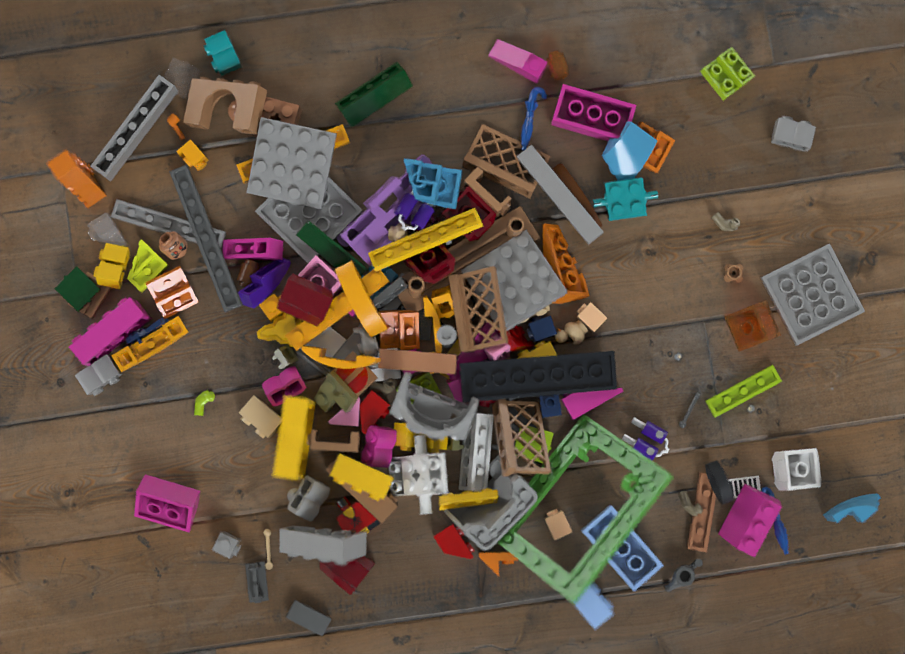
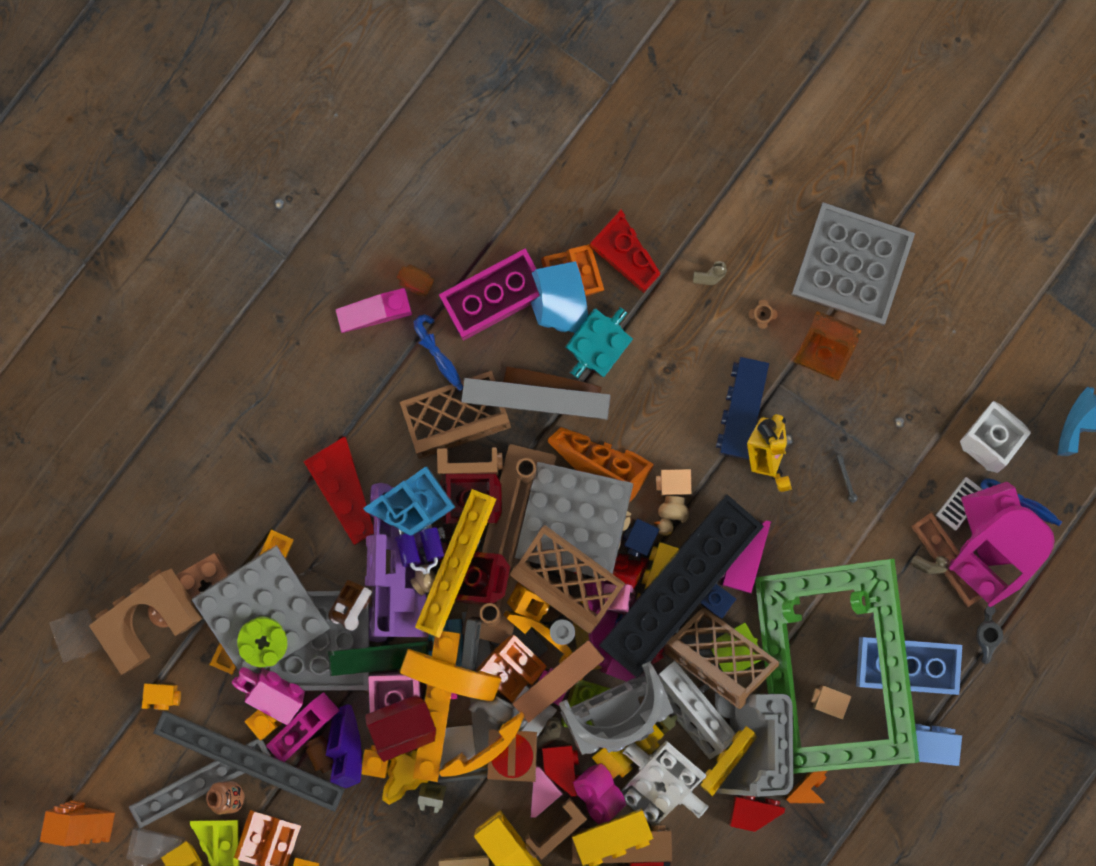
camera: 45 degrees left, 0 degrees up
(134, 128) = (80, 725): light grey brick -> none
(173, 120) = (108, 682): orange hand -> none
(222, 52) = (92, 573): teal brick -> none
(234, 225) = (262, 724): none -> light orange brick
(253, 212) = (270, 693): none -> dark pink brick
(265, 177) = (254, 630): none -> lime plate
(286, 384) = (458, 825): dark pink brick -> none
(333, 391) = (510, 782): olive plate -> none
(345, 204) = (353, 597): none -> reddish brown plate
(374, 94) = (272, 472): dark green panel -> none
(405, 135) = (338, 480): none -> red wing
(651, 431) = (831, 532): dark purple piece -> none
(662, 348) = (767, 448): none -> torso
(670, 314) = (744, 407): none -> dark blue brick
(689, 164) = (624, 252): none -> red wing
(719, 482) = (938, 519): black tyre -> none
(727, 73) = (577, 135): lime slope -> none
(743, 391) = (877, 413): lime tile -> none
(755, 537) = (1019, 537): none -> dark pink slope
(793, 134) = (691, 133): light grey brick -> none

